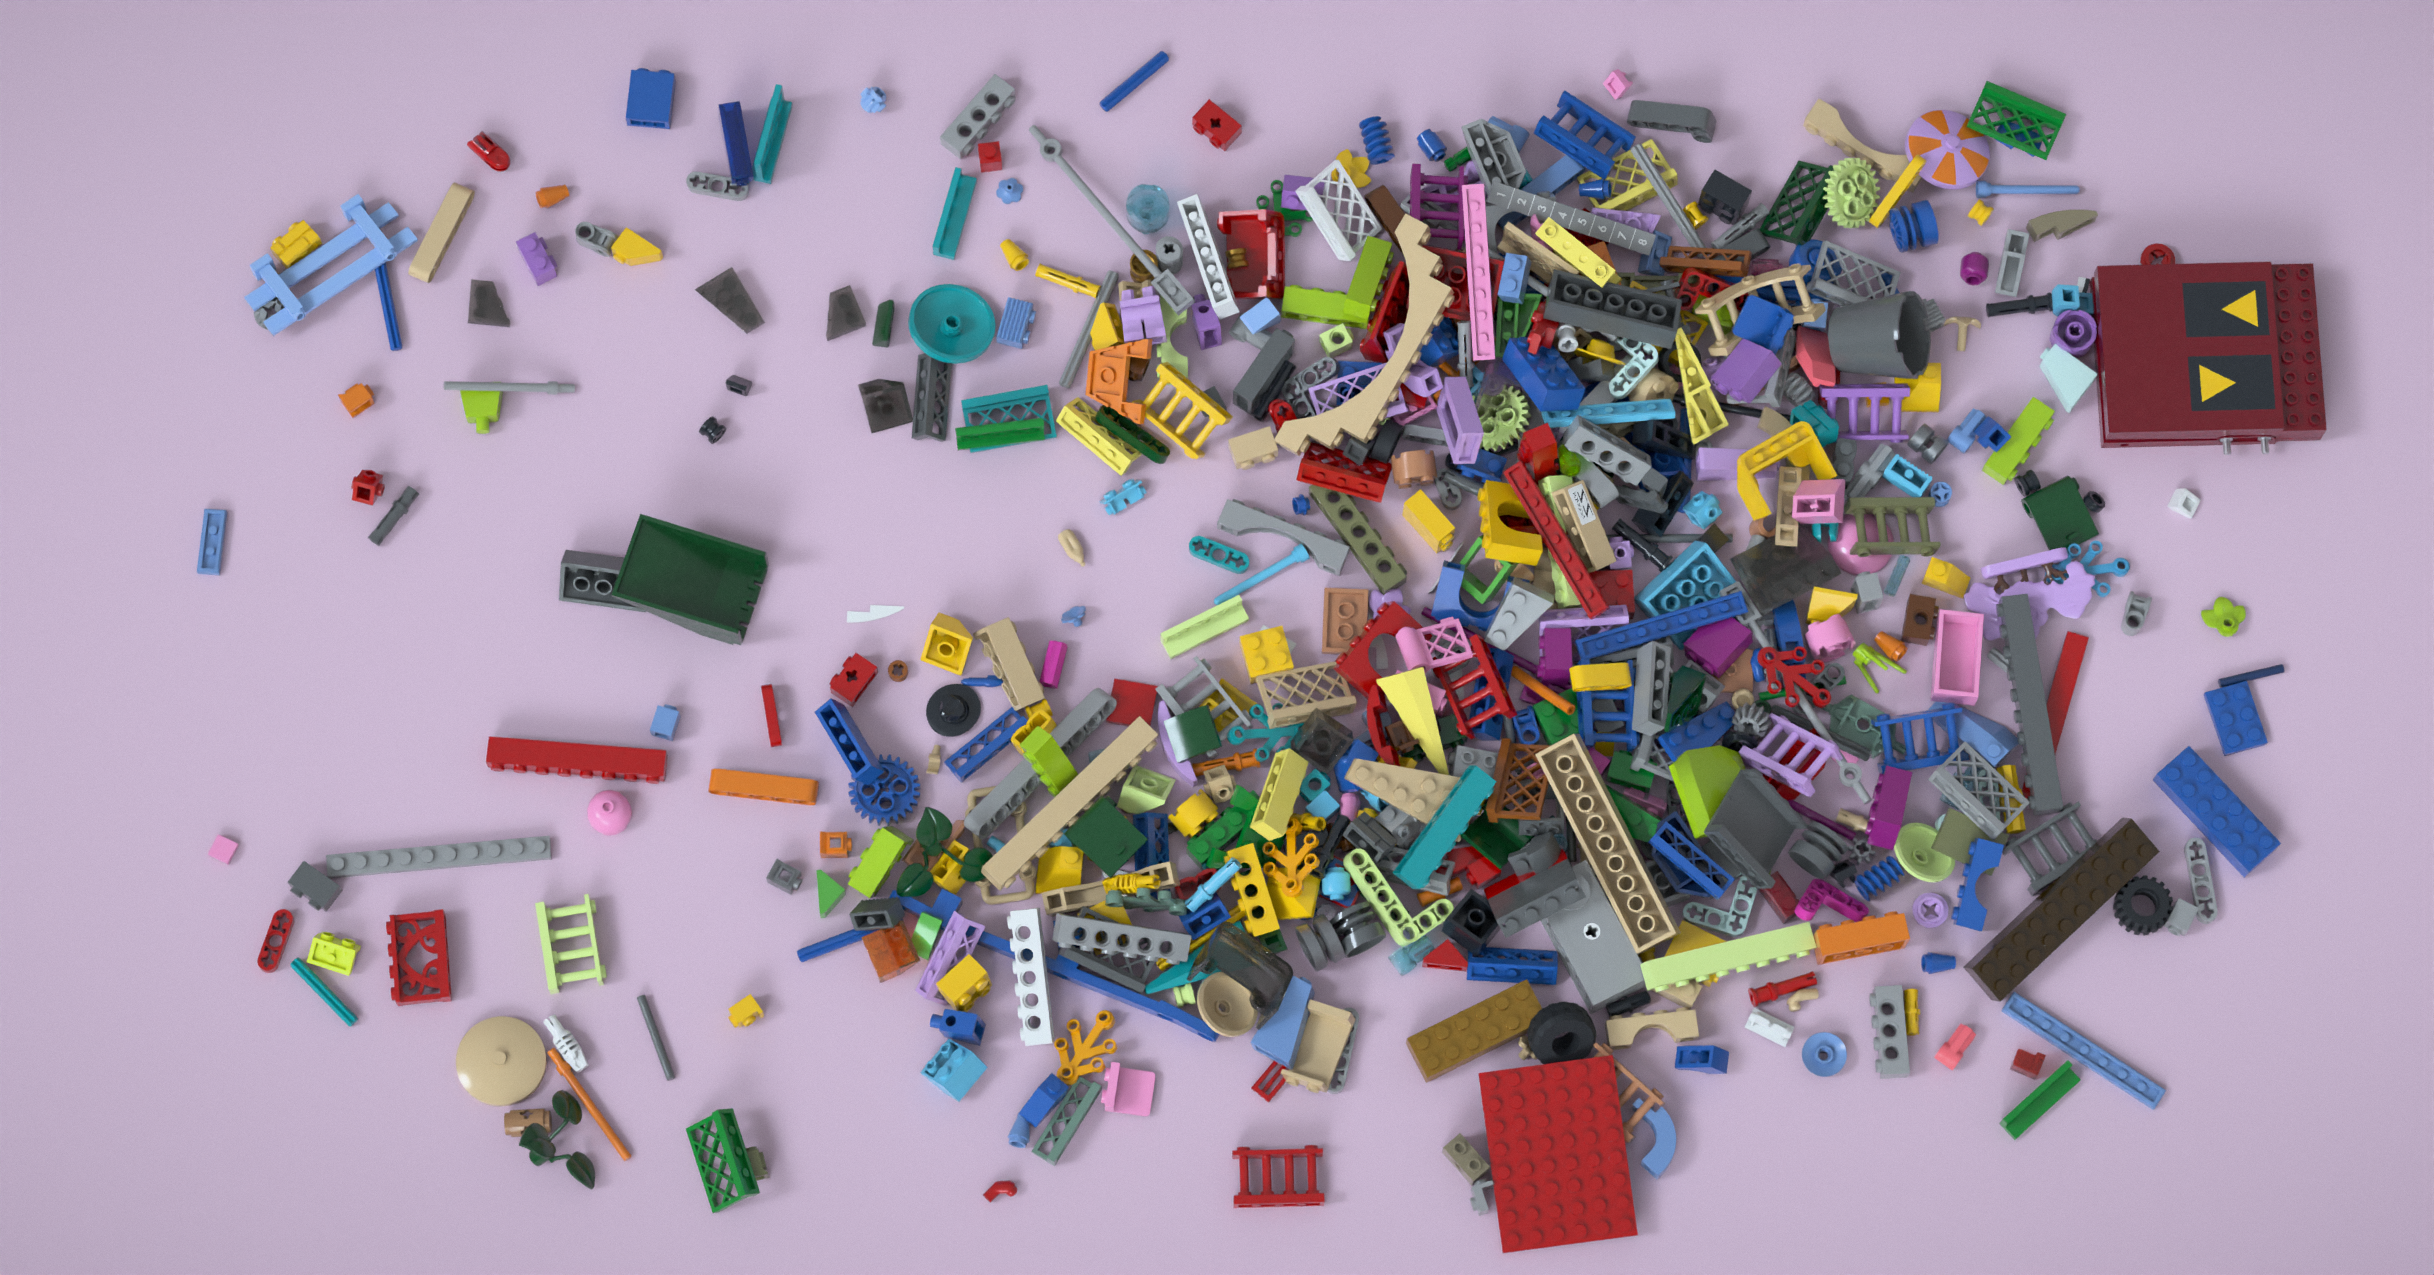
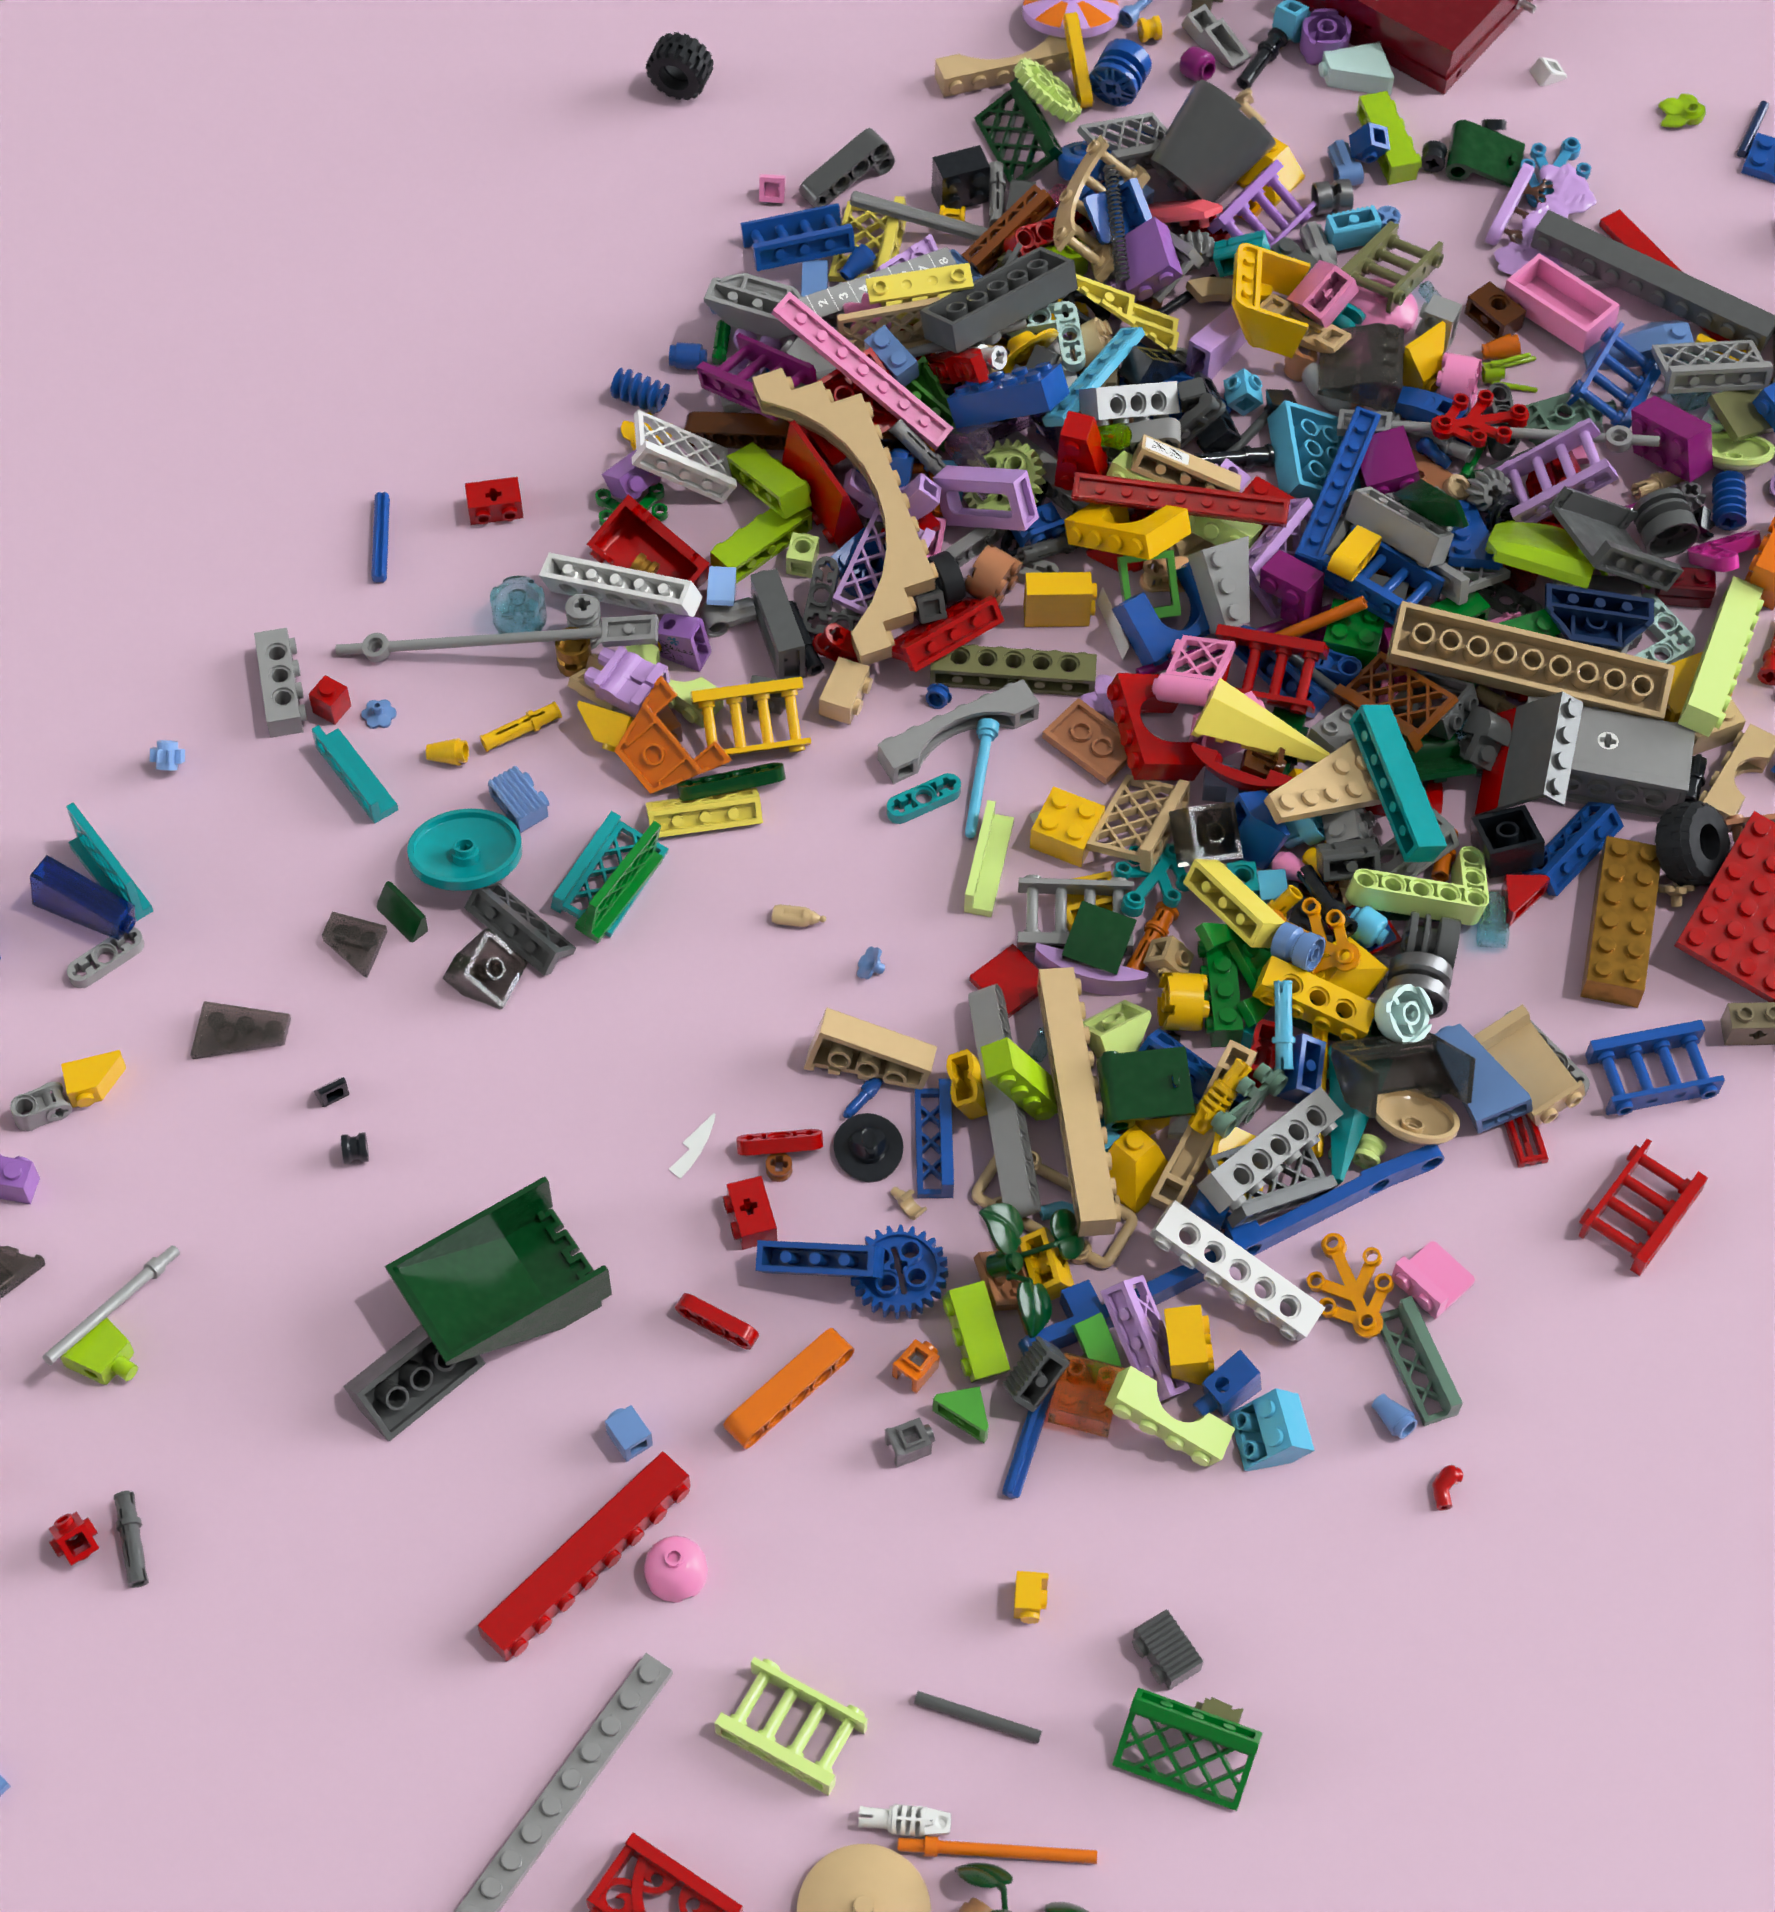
camera: 50 degrees left, 15 degrees down
(773, 1108) = (1167, 1650): none -> dark grey brick
(902, 979) = (1136, 1399): none -> yellowish green arch
(911, 659) = (779, 1142): none -> red beam
(947, 644) = (796, 1096): yellow slope -> none
(1042, 705) = (939, 1068): yellow bush -> none
(1044, 1100) = (1381, 1363): blue slope -> none
(1053, 664) = (904, 1016): dark pink axle -> none
(1085, 336) = (587, 746): light grey axle -> none
(1115, 499) = (781, 843): medium azure hinge -> none
(1272, 853) = (1295, 945): none -> medium blue wheel
(1283, 948) = (1403, 1013): none -> light aqua cylinder
(1404, 1112) = (1660, 1042): none -> blue fence
(1482, 872) = (1457, 800): red brick -> none
(1687, 867) = (1610, 610): blue fence -> none
(1752, 326) = (1116, 224): none -> dark grey piece
(1946, 578) = (1468, 269): yellow slope -> none
(2135, 609) = (1627, 164): light grey piece -> none

